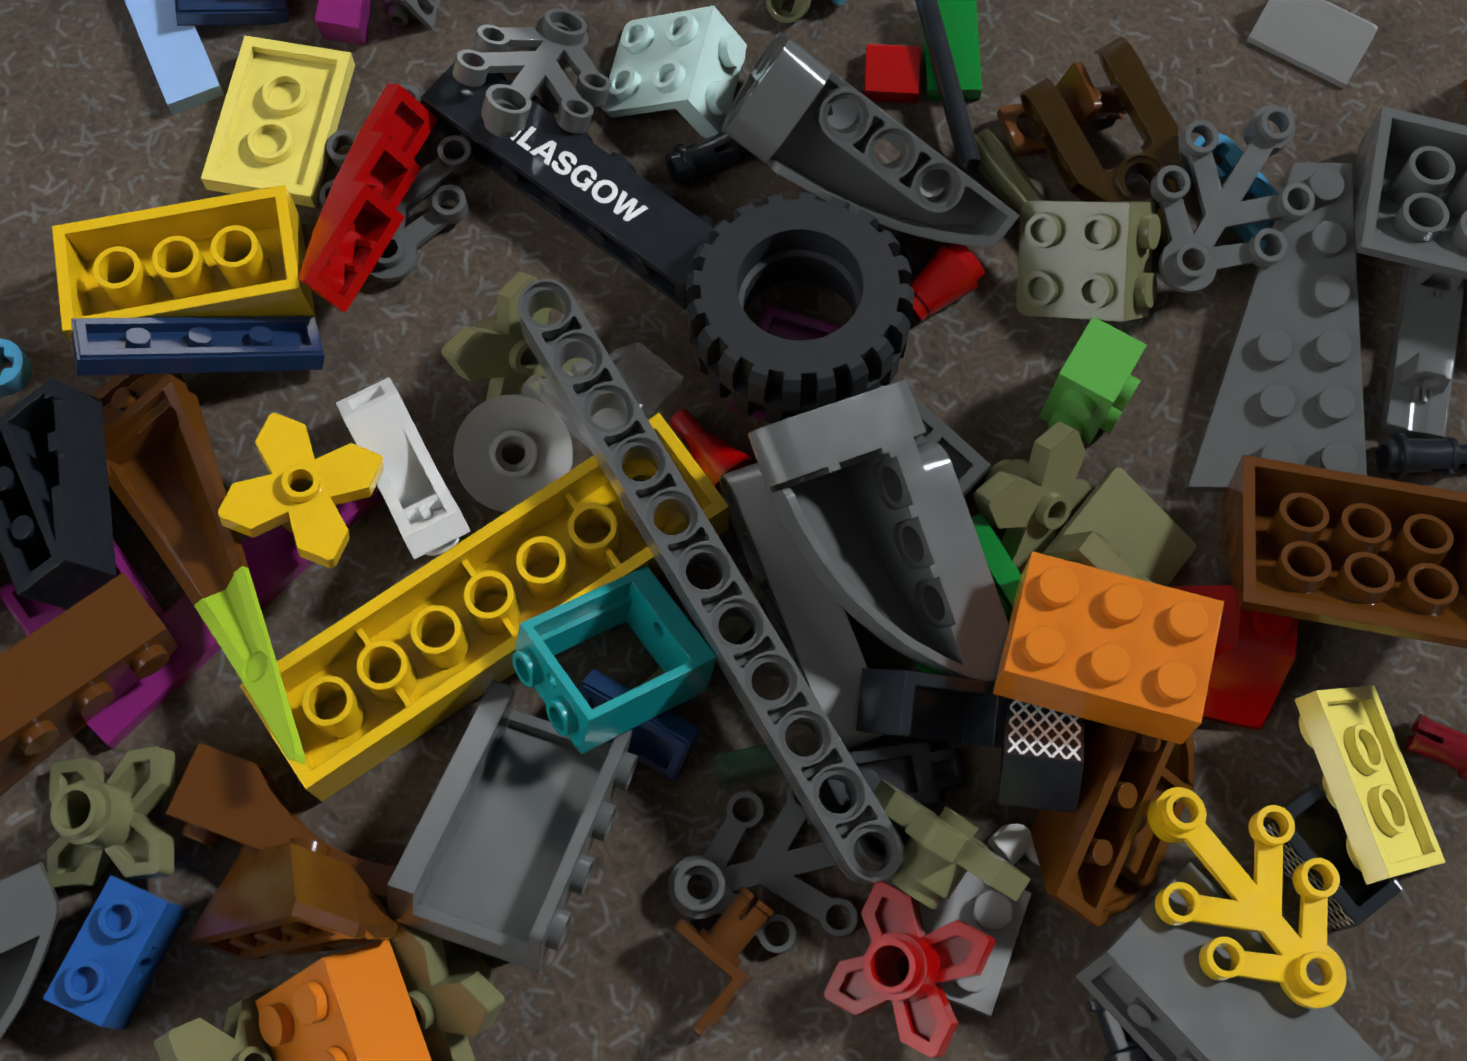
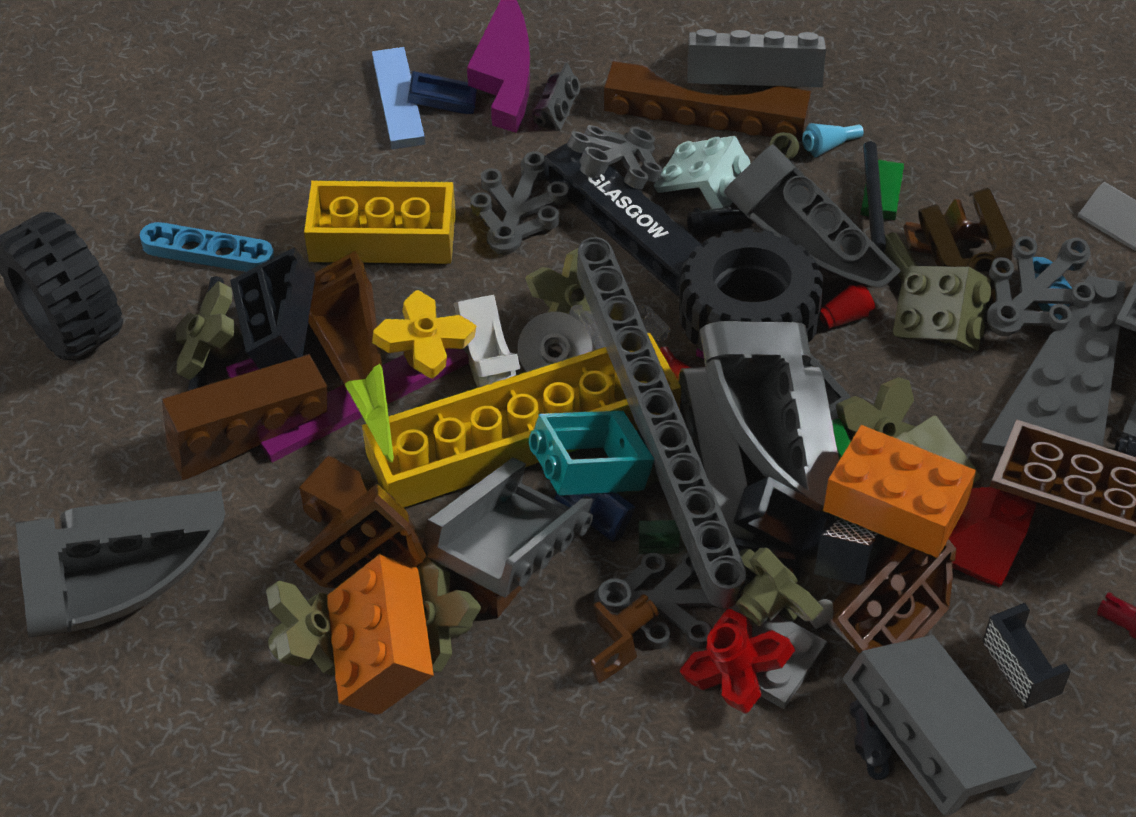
camera: 15 degrees right, 20 degrees down
(107, 818) = (264, 491): olive plant -> none
(116, 954) = (249, 558): blue brick -> none
(195, 344) = (380, 255): dark blue tile -> none
(278, 119) = (458, 154): light yellow plate -> none
(364, 198) = (499, 199): red slope -> none
(892, 73) = (844, 194): red tile -> none
(1095, 381) = (930, 366): bright green brick -> none
(1254, 903) = (965, 655): yellow plant -> none
(1368, 782) = (1063, 615): light yellow plate -> none

